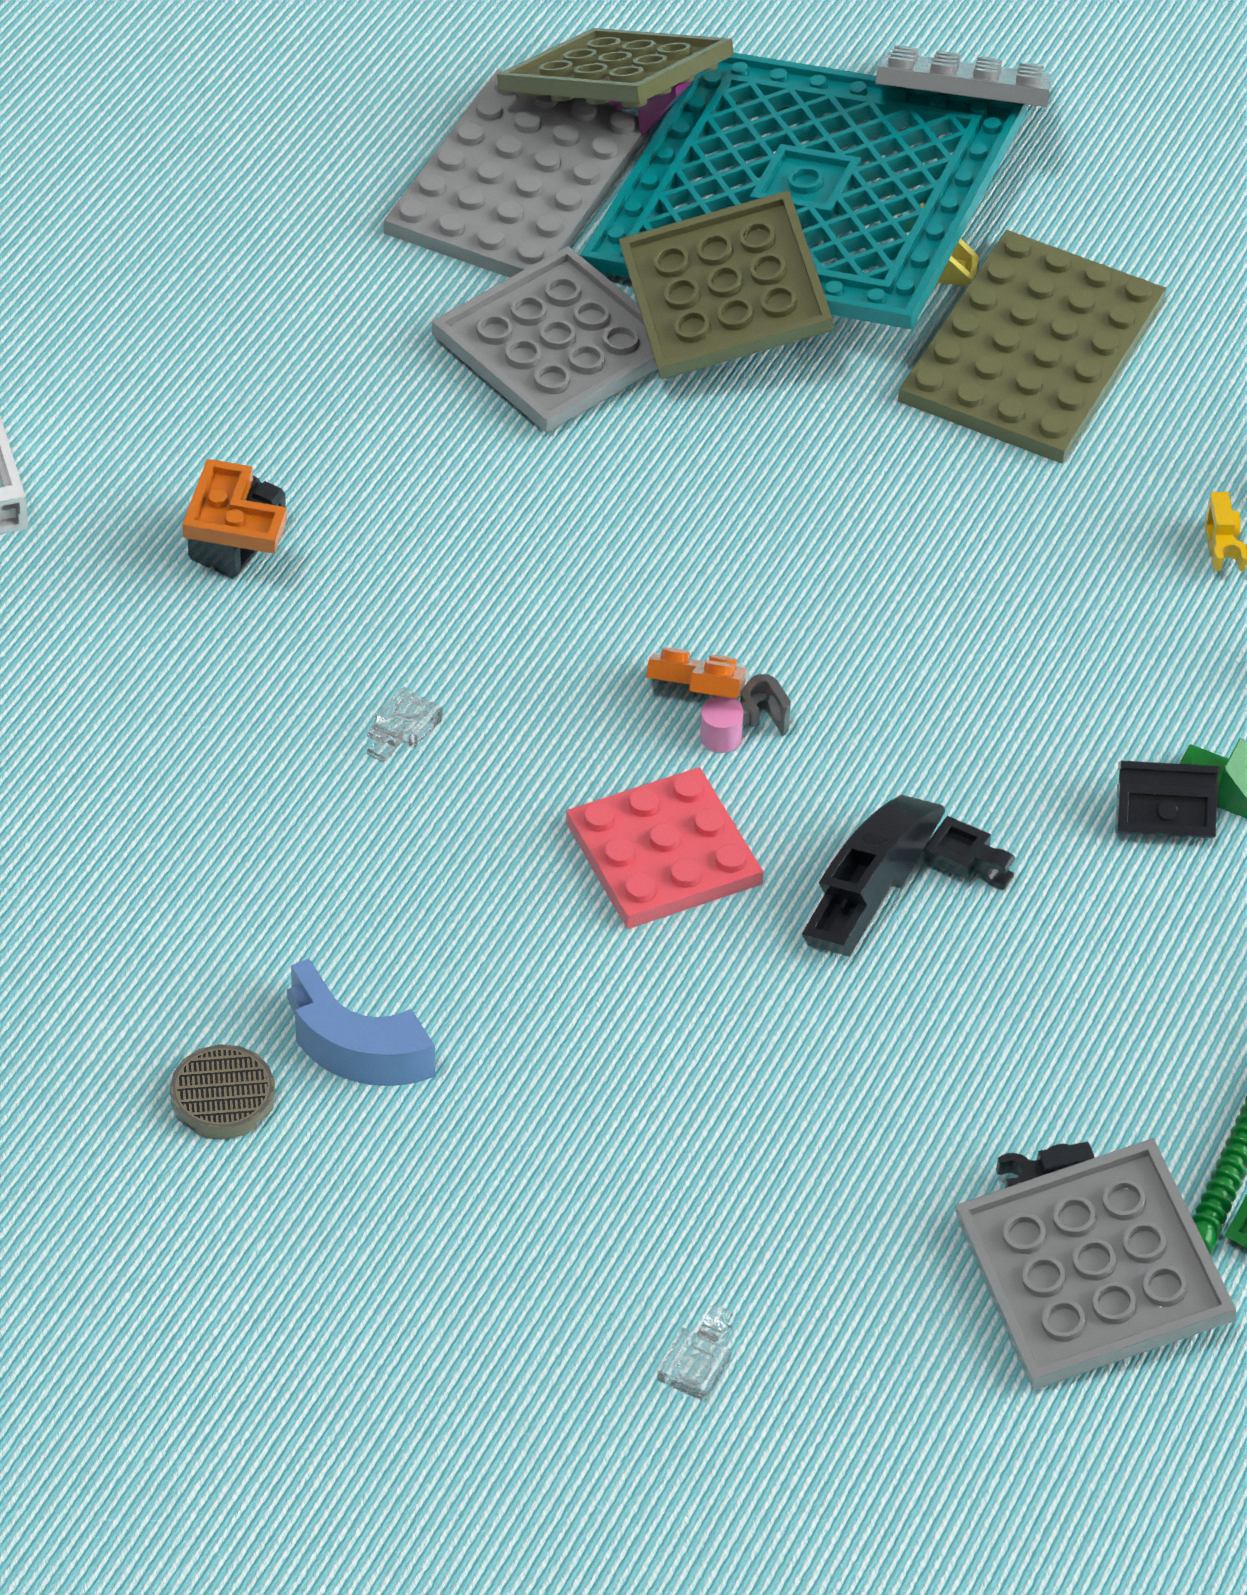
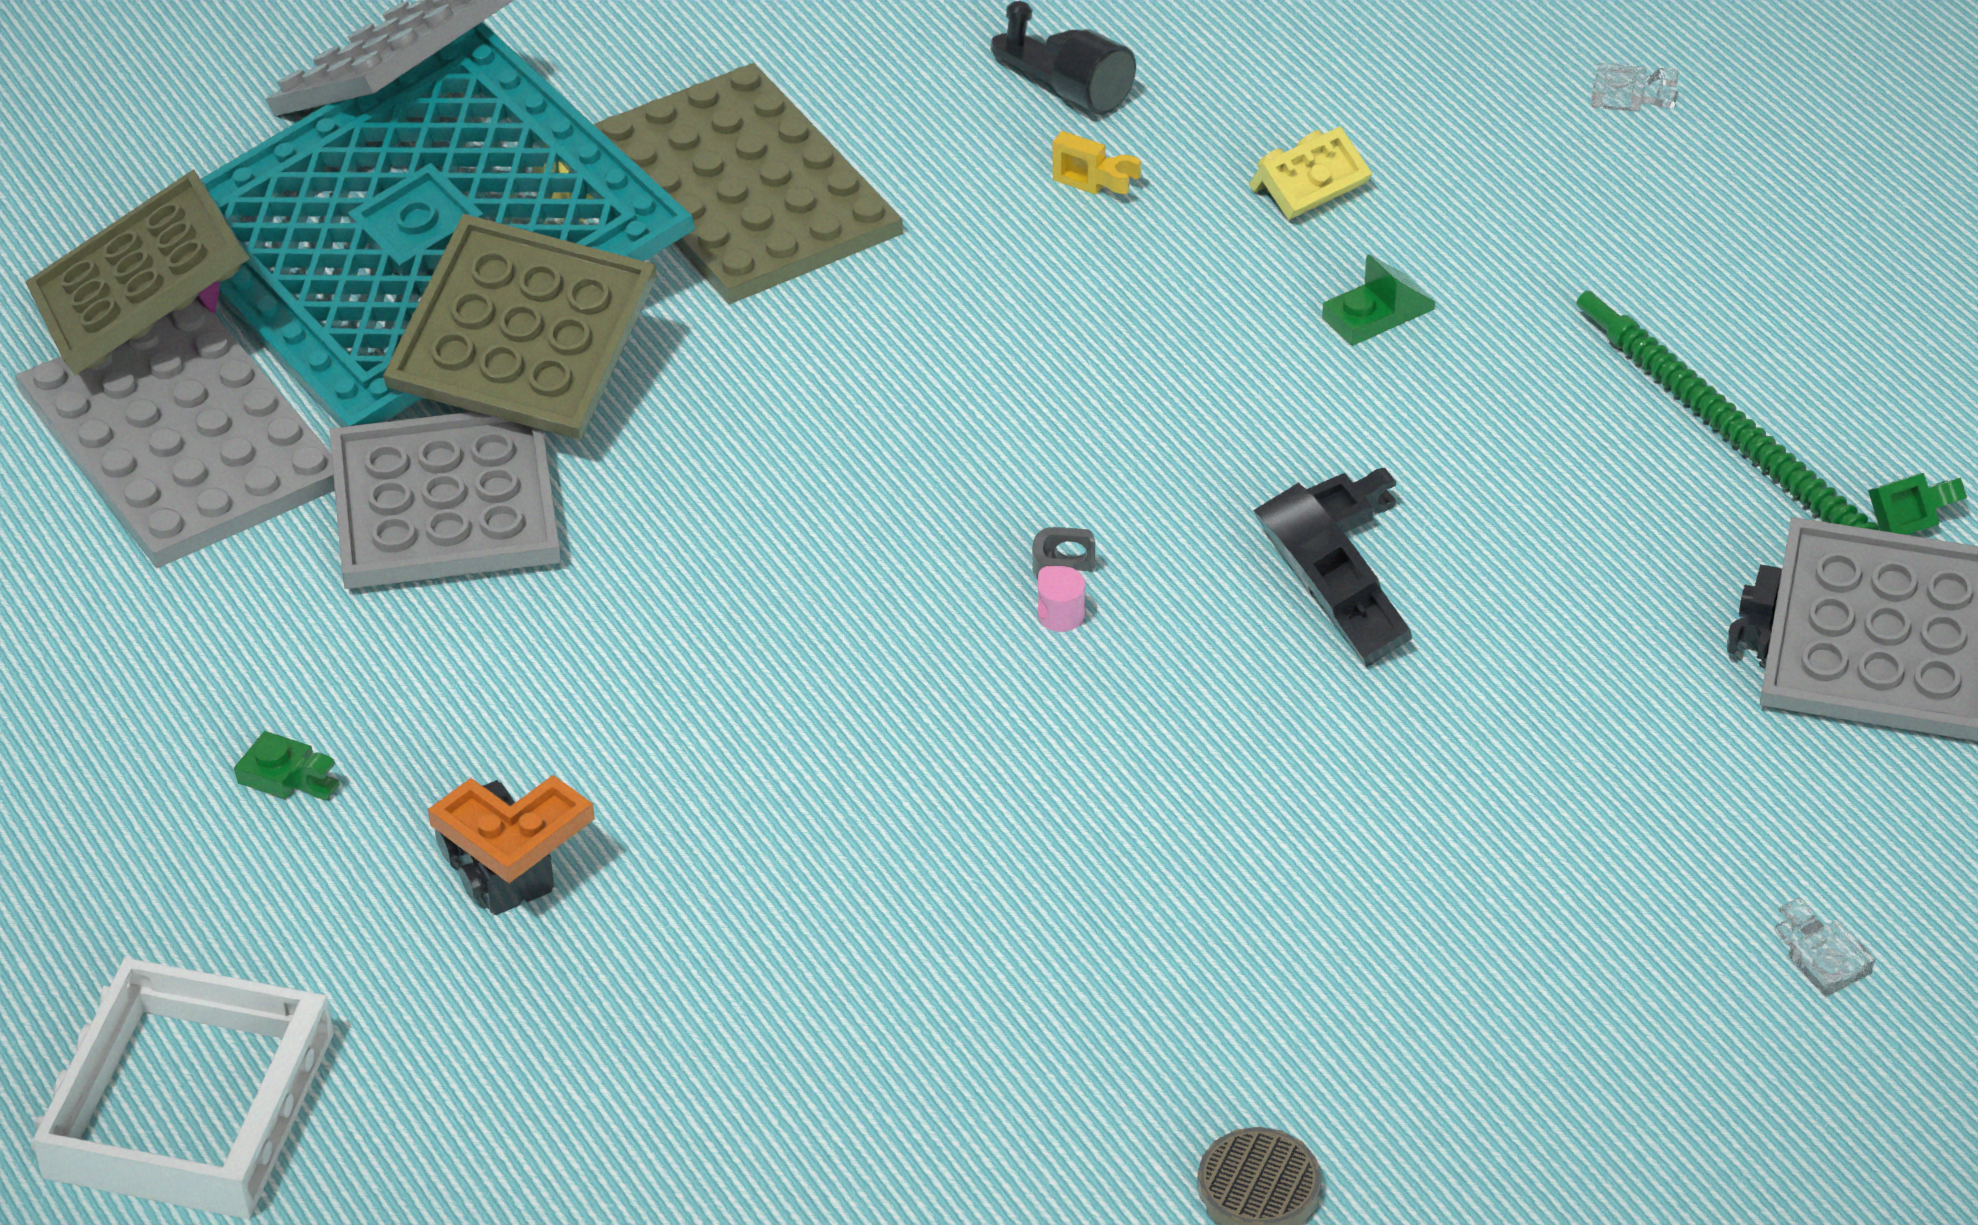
camera: 55 degrees left, 5 degrees down
(240, 382) = (281, 764): none -> green plate
(354, 1045) = (1266, 1051): medium blue arch -> none
(402, 719) = (871, 833): clear plate -> none
(664, 847) = (1177, 712): coral plate -> none
(714, 677) = (997, 573): orange plate -> none
(1167, 799) = (1386, 343): black plate -> none

